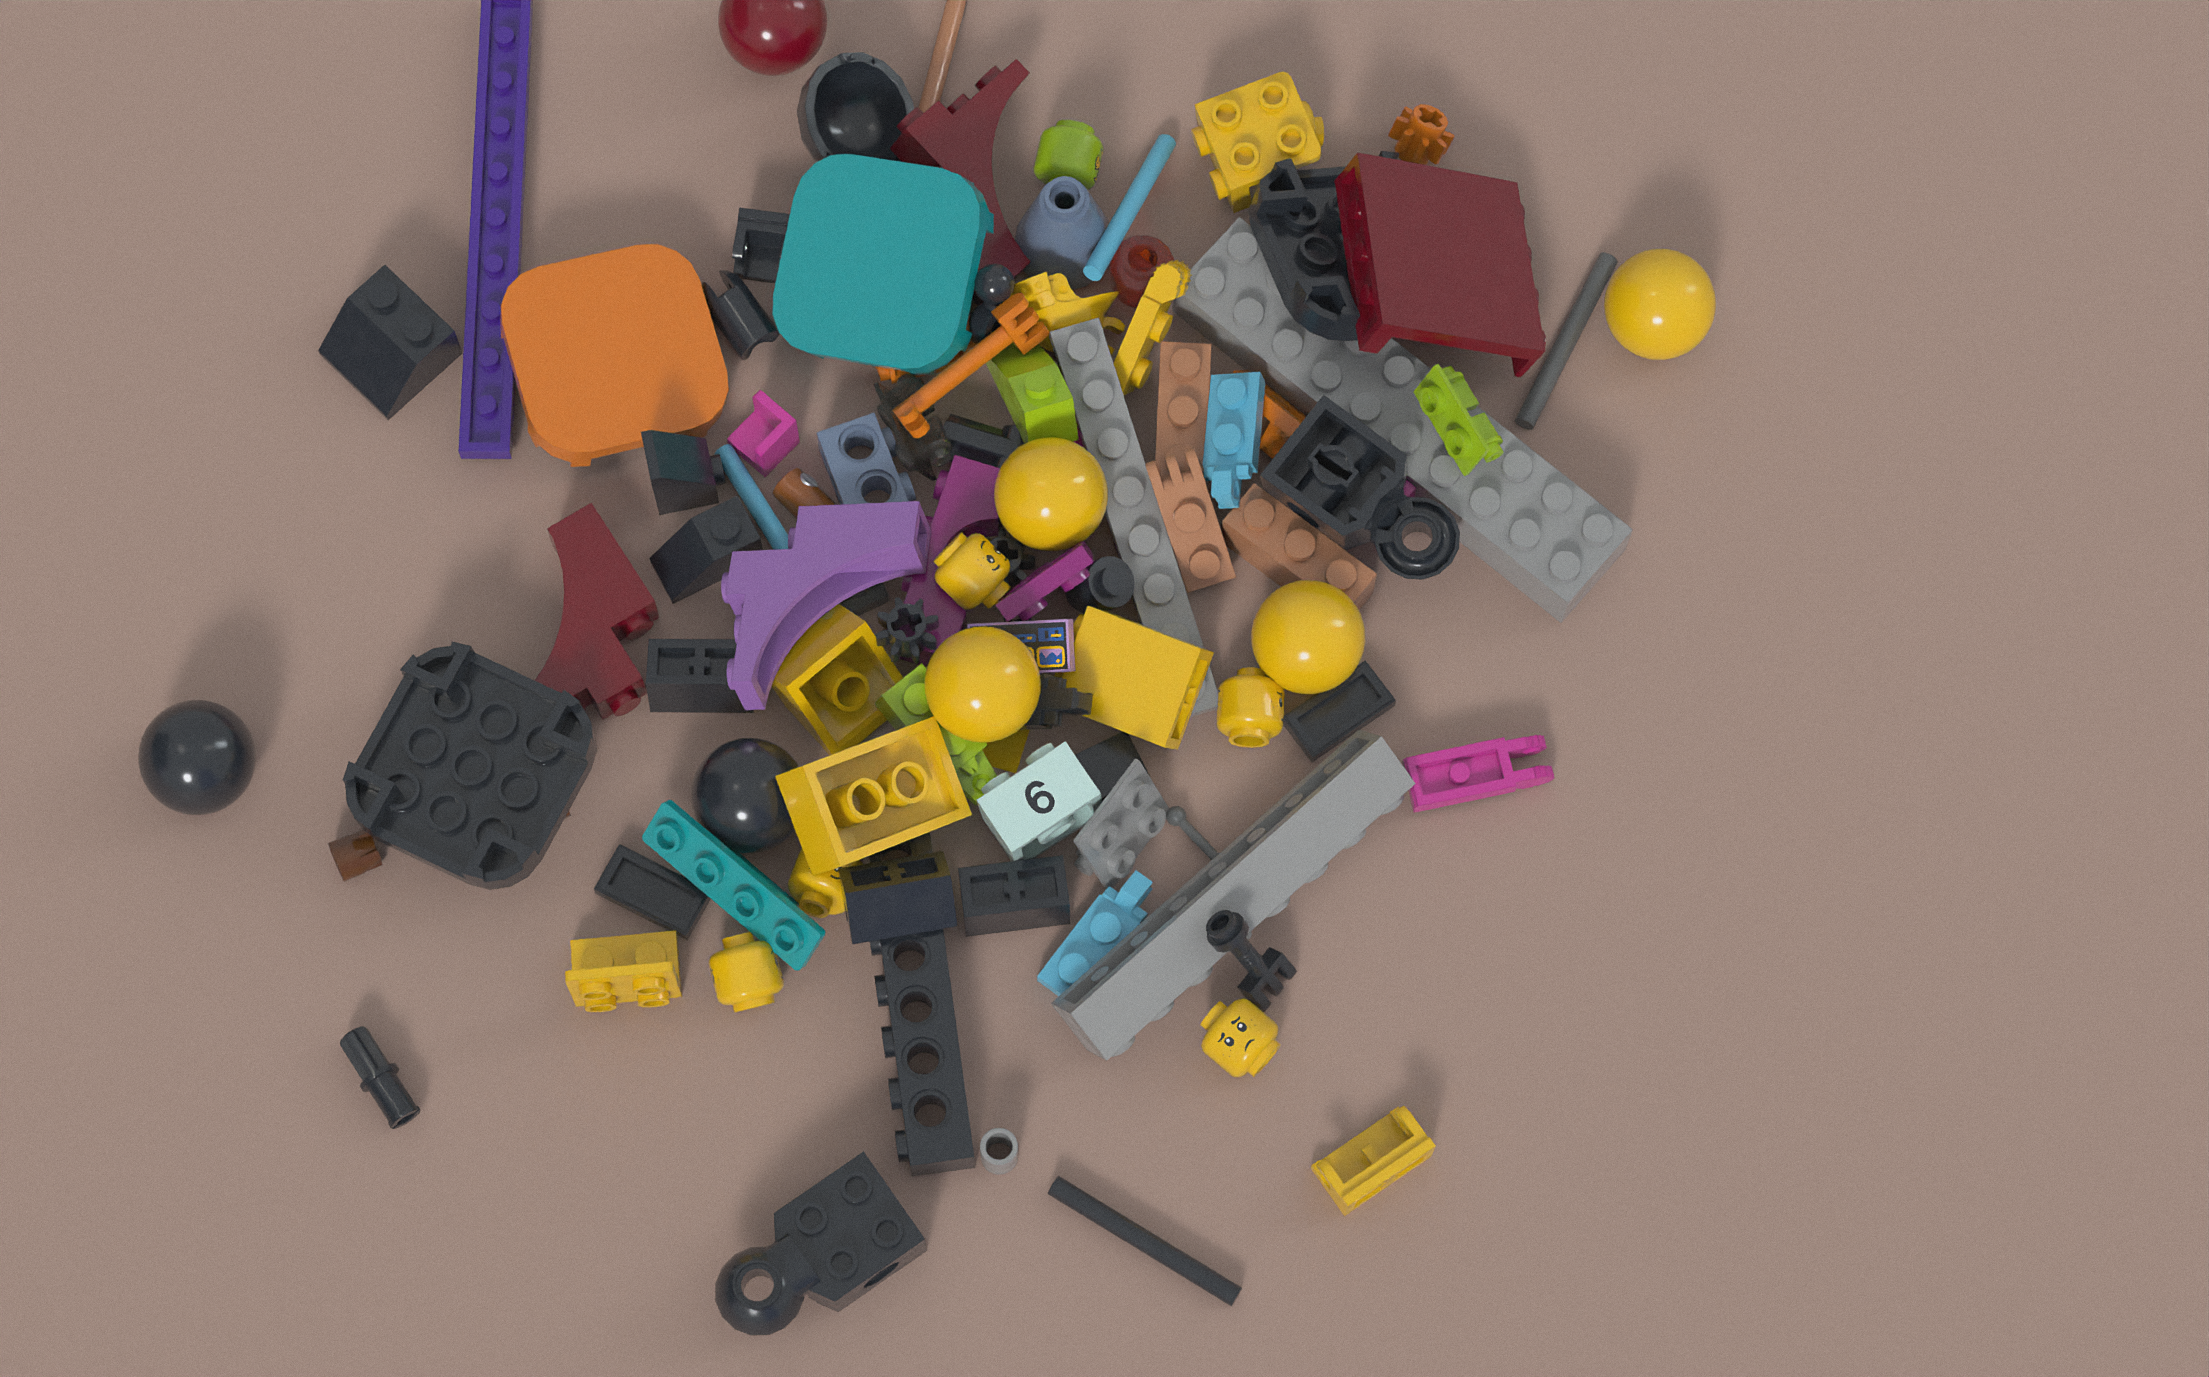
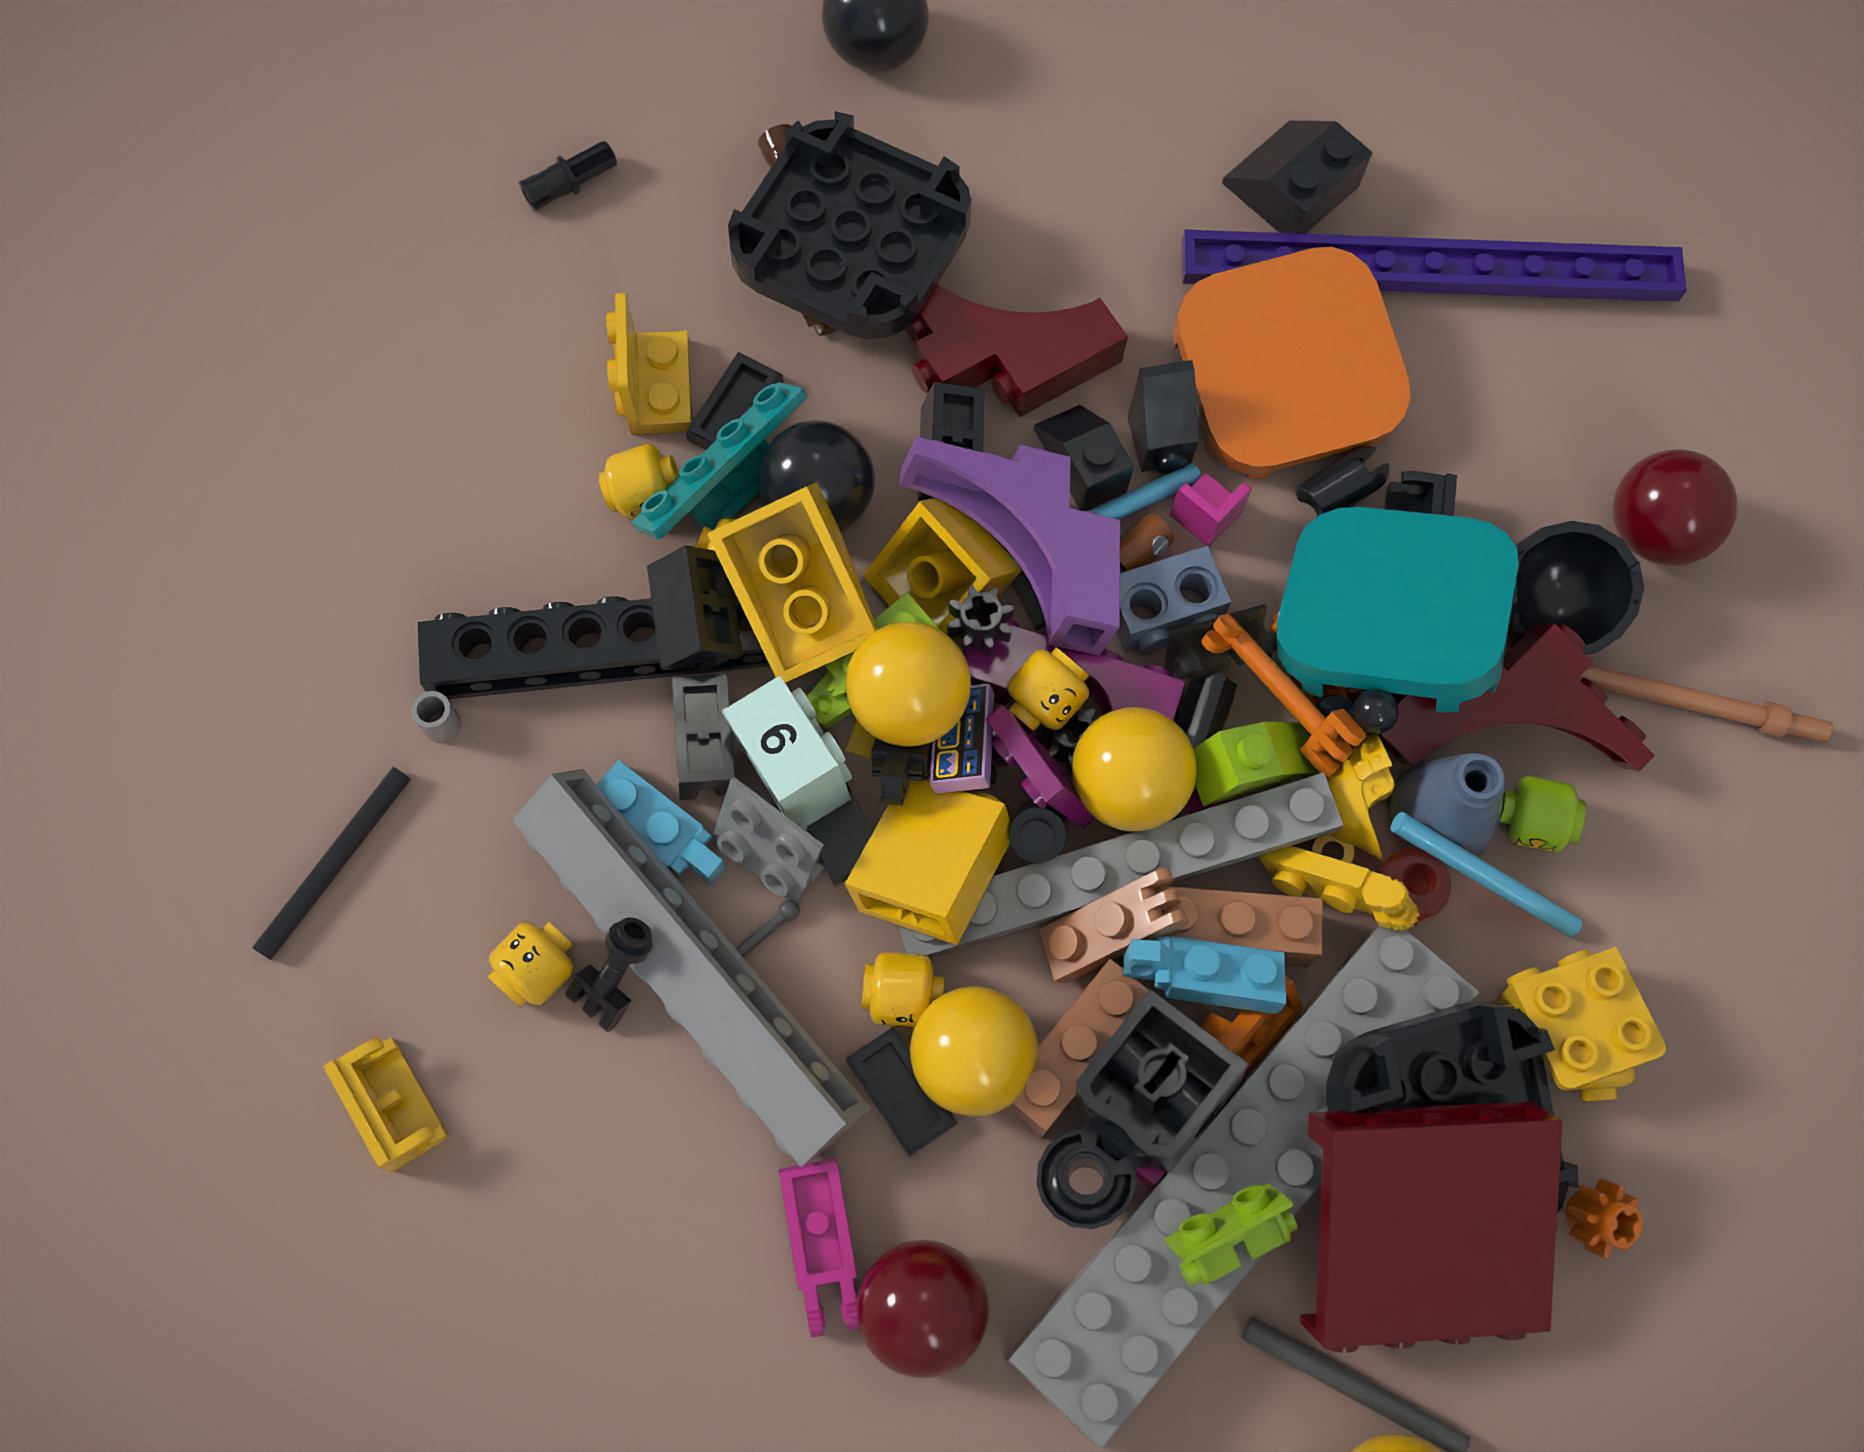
camera: 90 degrees right, 0 degrees up
(828, 1245) = (349, 546): black brick -> none
(1527, 679) = (922, 1308): none -> dark red piece

